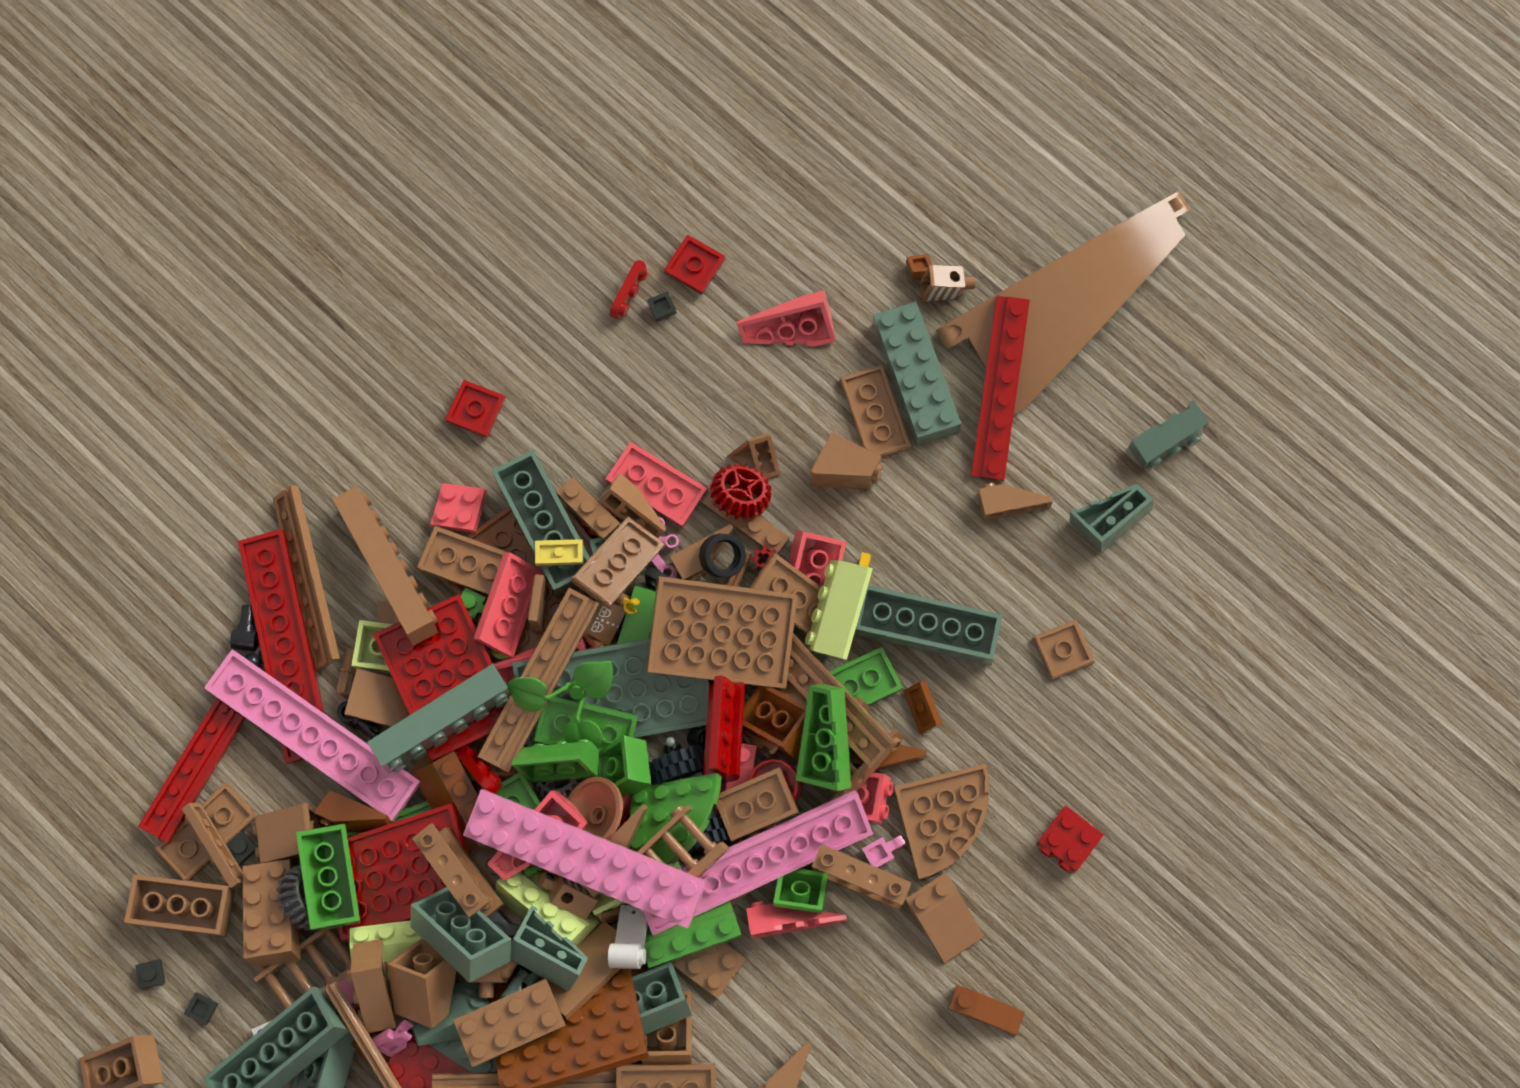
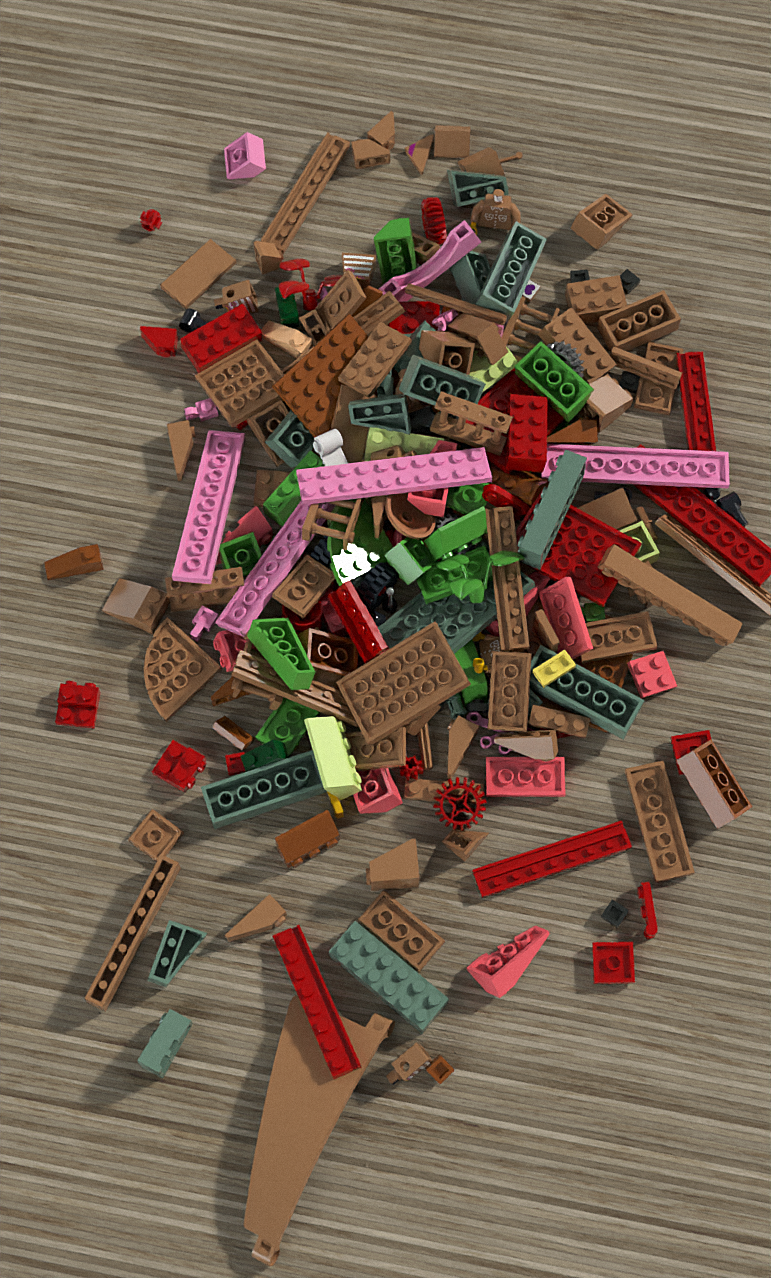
camera: 145 degrees right, 5 degrees down
(203, 968) = (595, 297): none -> medium nougat brick
(389, 846) = (527, 433): none -> red brick
(480, 362) = (714, 784): none -> slope
(557, 365) = (659, 821): none -> medium nougat plate
(685, 391) = (551, 859): none -> red plate
(739, 555) = (429, 740): black tyre -> none
(800, 971) = (209, 507): none -> bright pink plate
(907, 654) = (264, 755): none -> dark green brick
(914, 548) = (307, 839): none -> dark orange slope
(938, 673) = (235, 764): none -> red plate
(998, 707) = (180, 766): none -> red plate
(1141, 559) = (132, 933): none -> medium nougat brick

